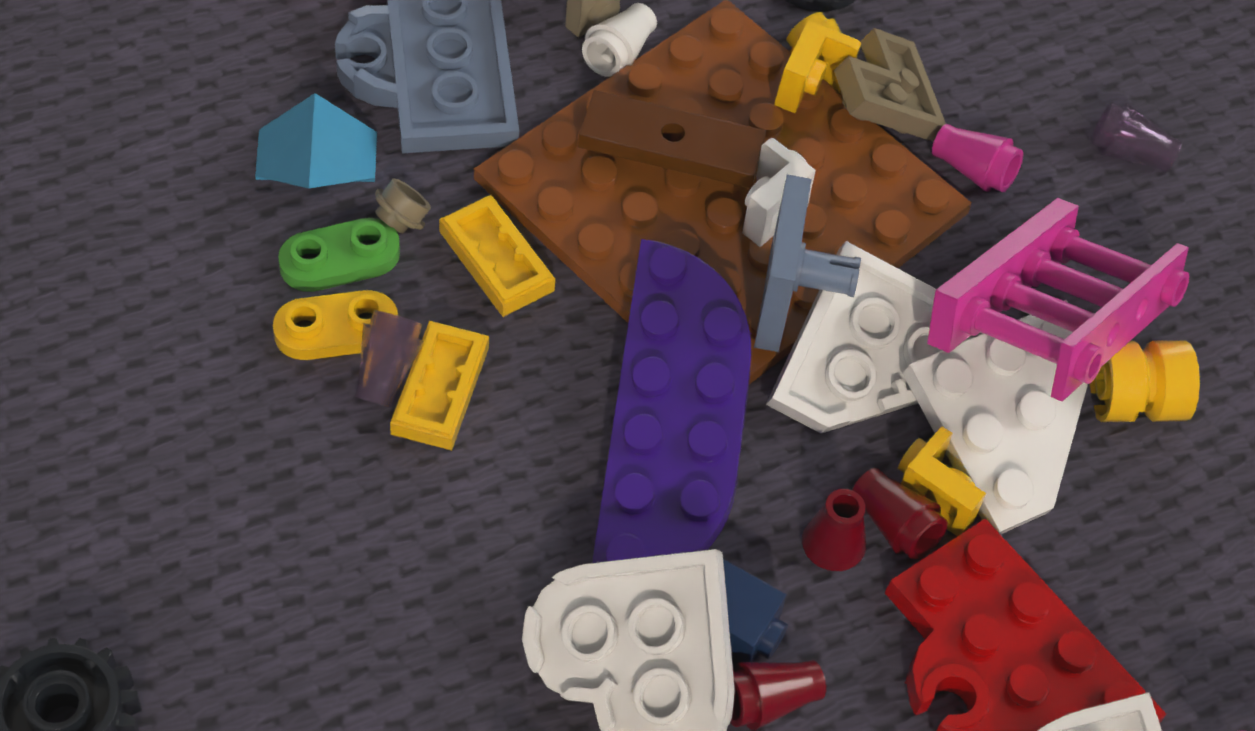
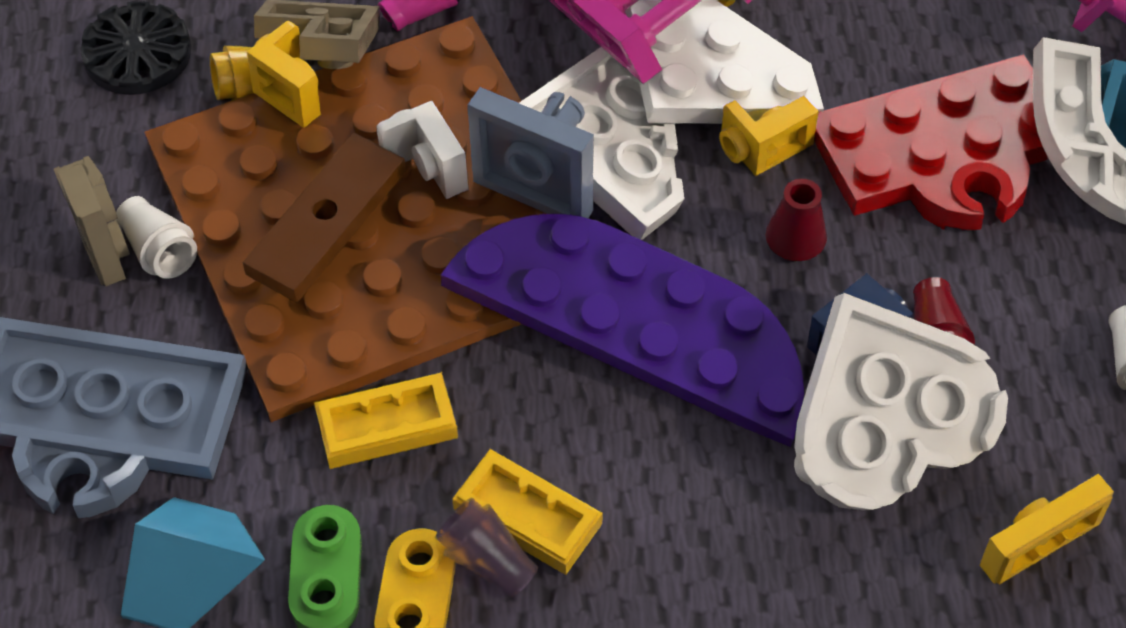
camera: 65 degrees left, 0 degrees up
(401, 206) = (292, 492): dark tan plate -> none
(901, 514) = (793, 161): dark red cone -> none

